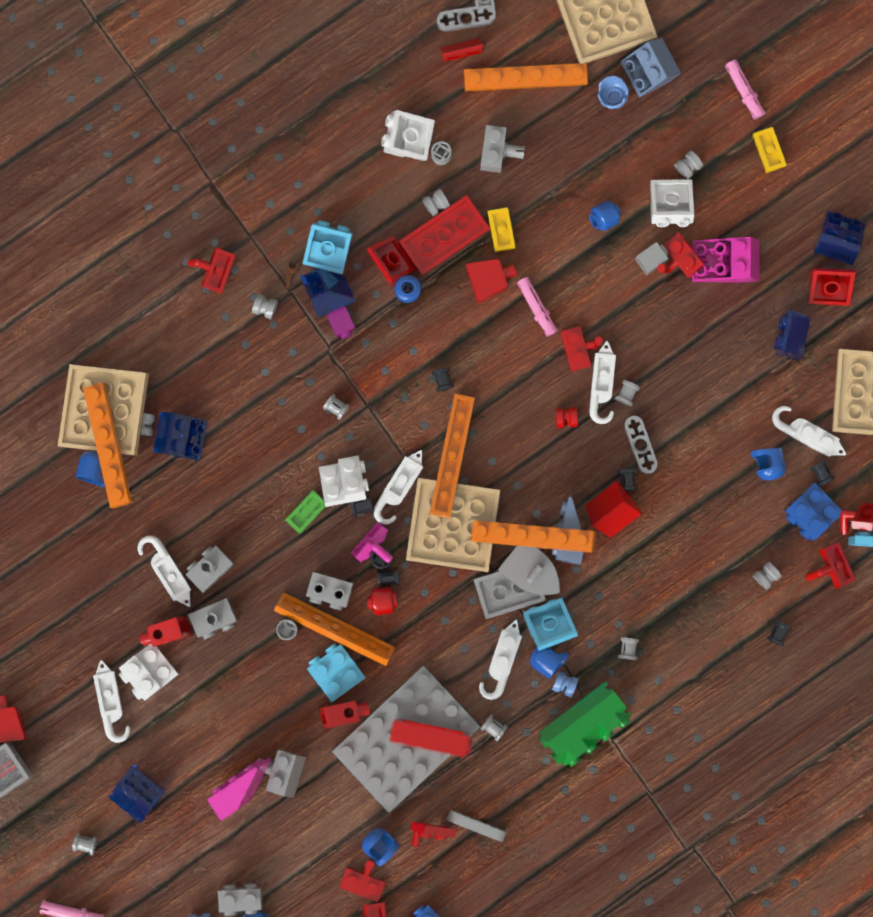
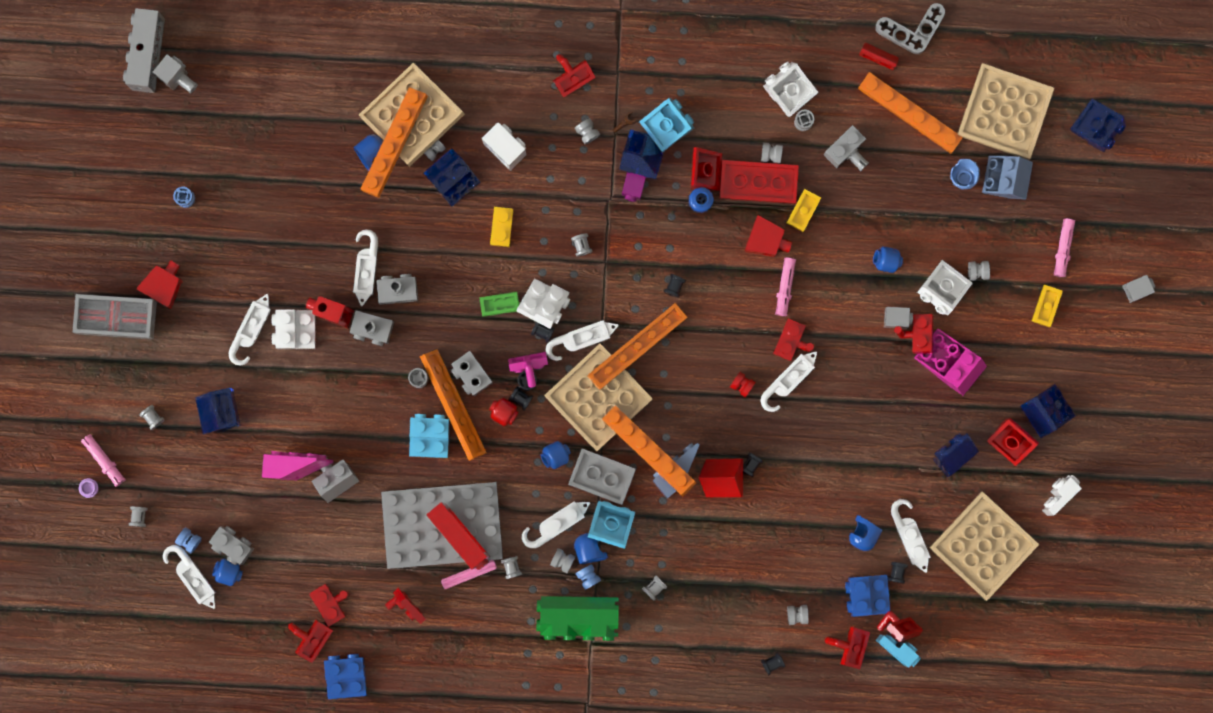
camera: 35 degrees right, 0 degrees up
(204, 374) = (504, 145): none -> white brick
(256, 445) = (501, 227): none -> yellow plate
(334, 714) = (402, 467): red torso -> none
(379, 846) = (361, 586): blue helmet -> none
(455, 603) = (555, 455): none -> blue head
(460, 765) = (467, 575): none -> bright pink axle
(476, 825) = (443, 628): light grey beam -> none
(531, 571) = (628, 475): light grey shield -> none
(532, 687) = (562, 560): none -> light grey wheel
(627, 393) = (801, 401): light grey bush -> none
(629, 432) = (781, 432): light grey beam -> none
(834, 74) = (1139, 288): none -> light grey brick

